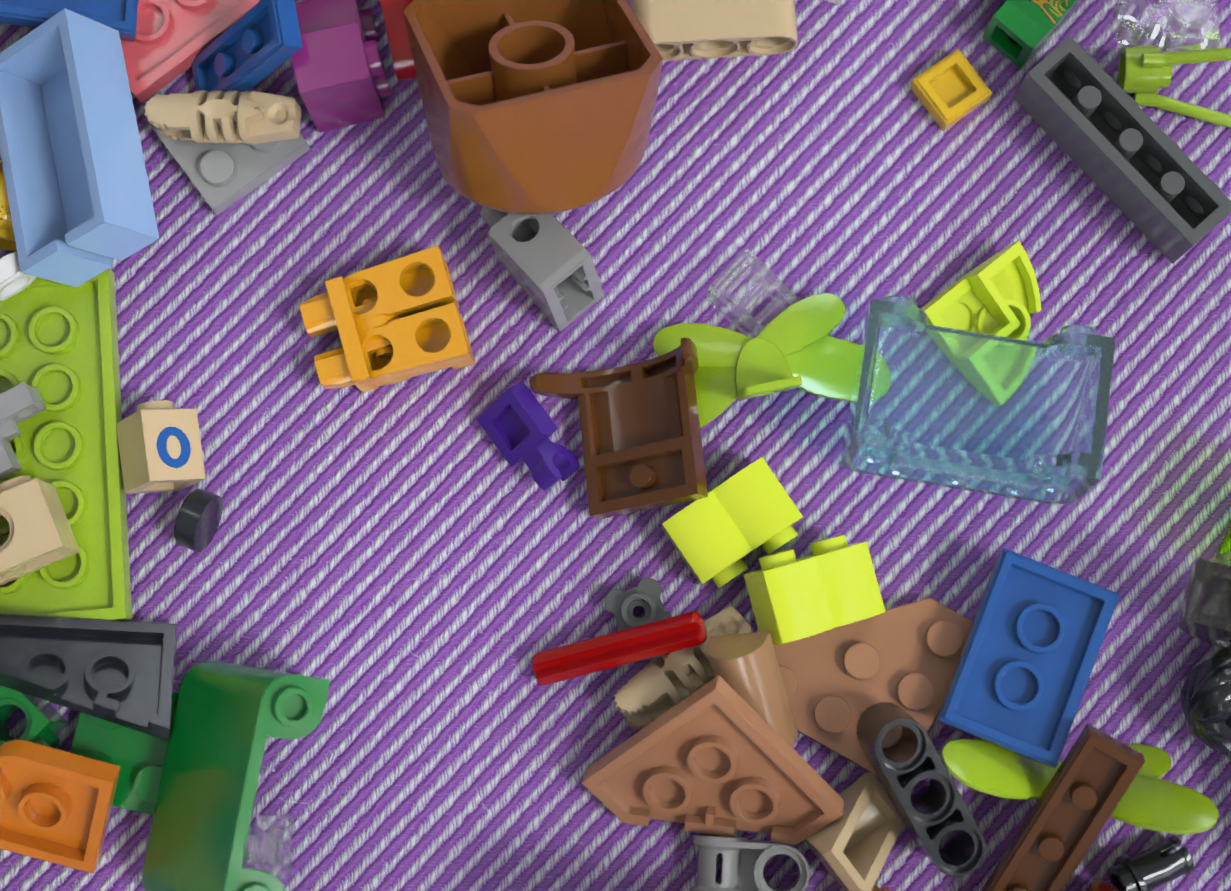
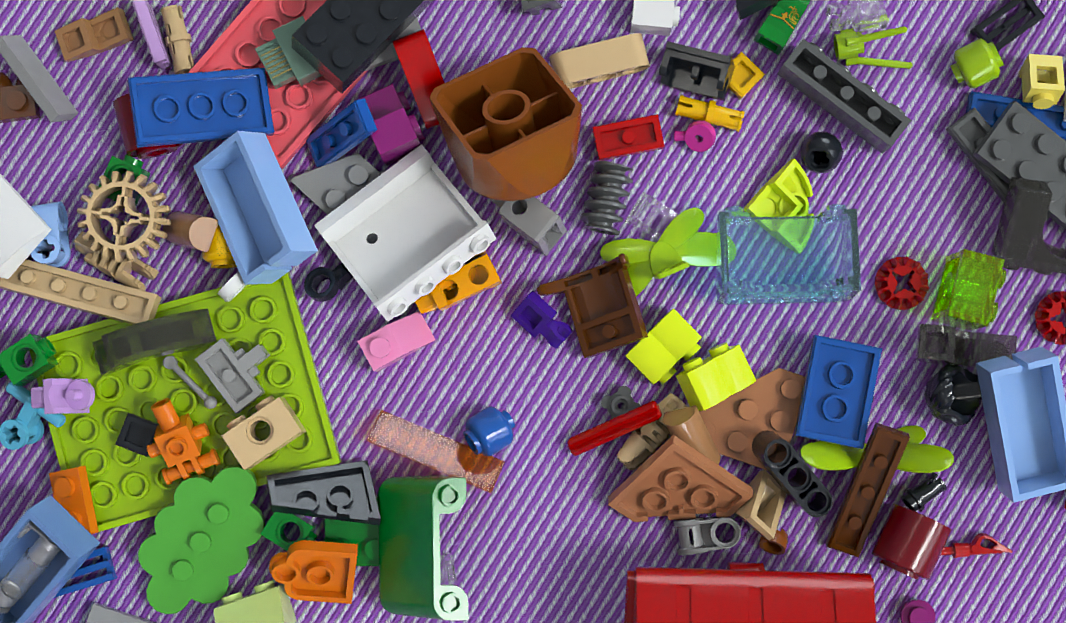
camera: 10 degrees left, 5 degrees up
(160, 448) = (339, 365): tan brick -> none
(198, 520) = (367, 401): black tile -> none
(225, 116) = (336, 171): tan hinge -> none
(268, 257) = (338, 278): none -> black piece
(268, 426) = (396, 341): none -> bright pink slope
(299, 631) = (435, 451): none -> slope
(319, 240) = (421, 232): none -> white panel
(398, 612) = (489, 431): none -> blue head
(680, 246) = (606, 197): none -> dark grey piece
(738, 156) = (628, 137): none -> red plate
(848, 178) = (692, 139): none -> dark pink piece
(876, 63) = (696, 71): none -> black hinge
(885, 141) = (709, 112): none -> yellow pin
(1067, 239) = (821, 152): none -> black piece
(1143, 486) = (886, 283): none -> red gear

